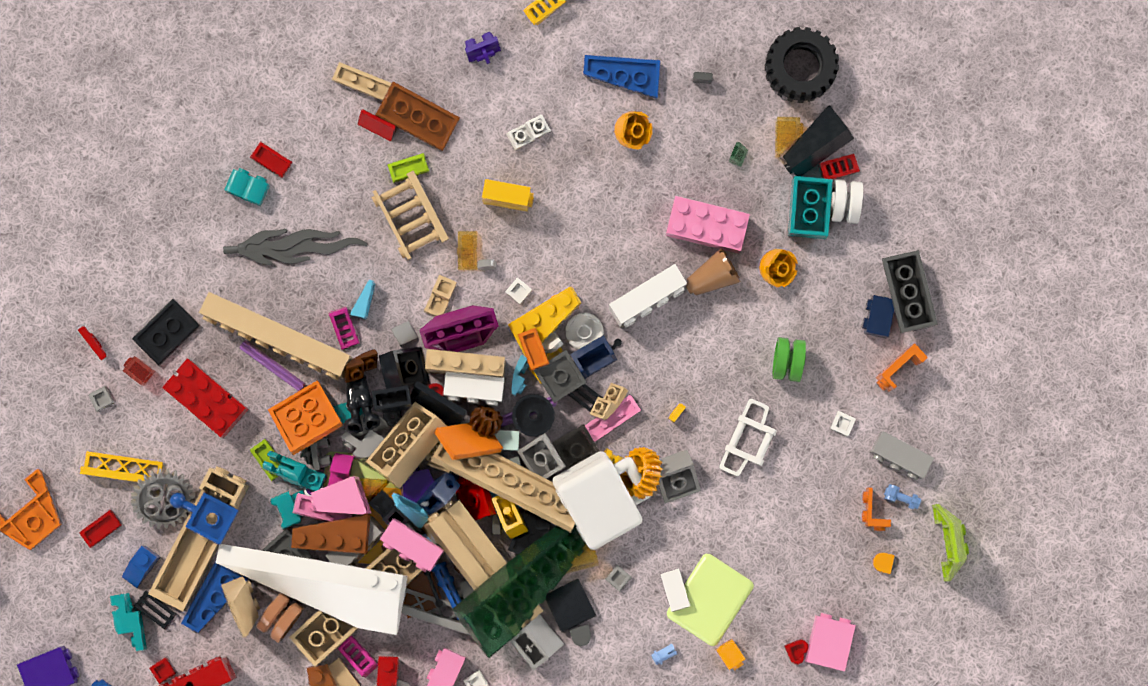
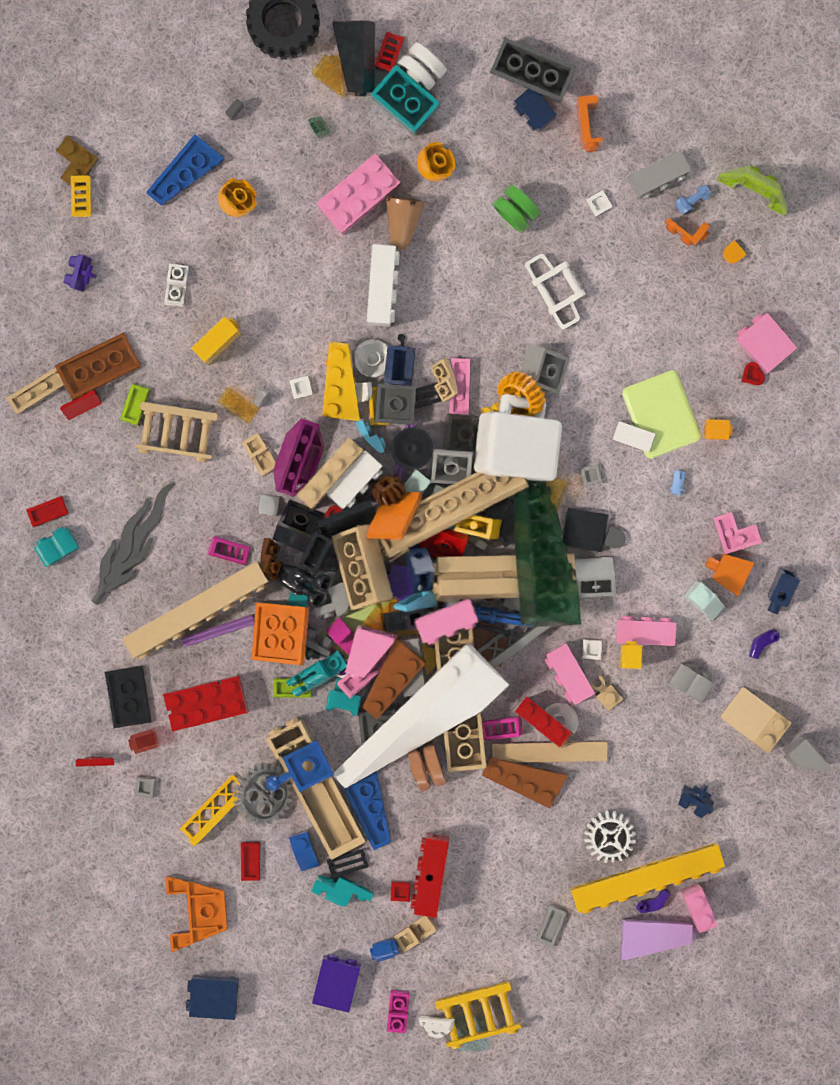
camera: 50 degrees left, 5 degrees up
(241, 604) = (394, 791): tan slope -> none
(363, 303) = (223, 525): medium azure slope -> none
(533, 349) = (358, 409): orange tile -> none
(676, 413) = (493, 331): yellow tile -> none

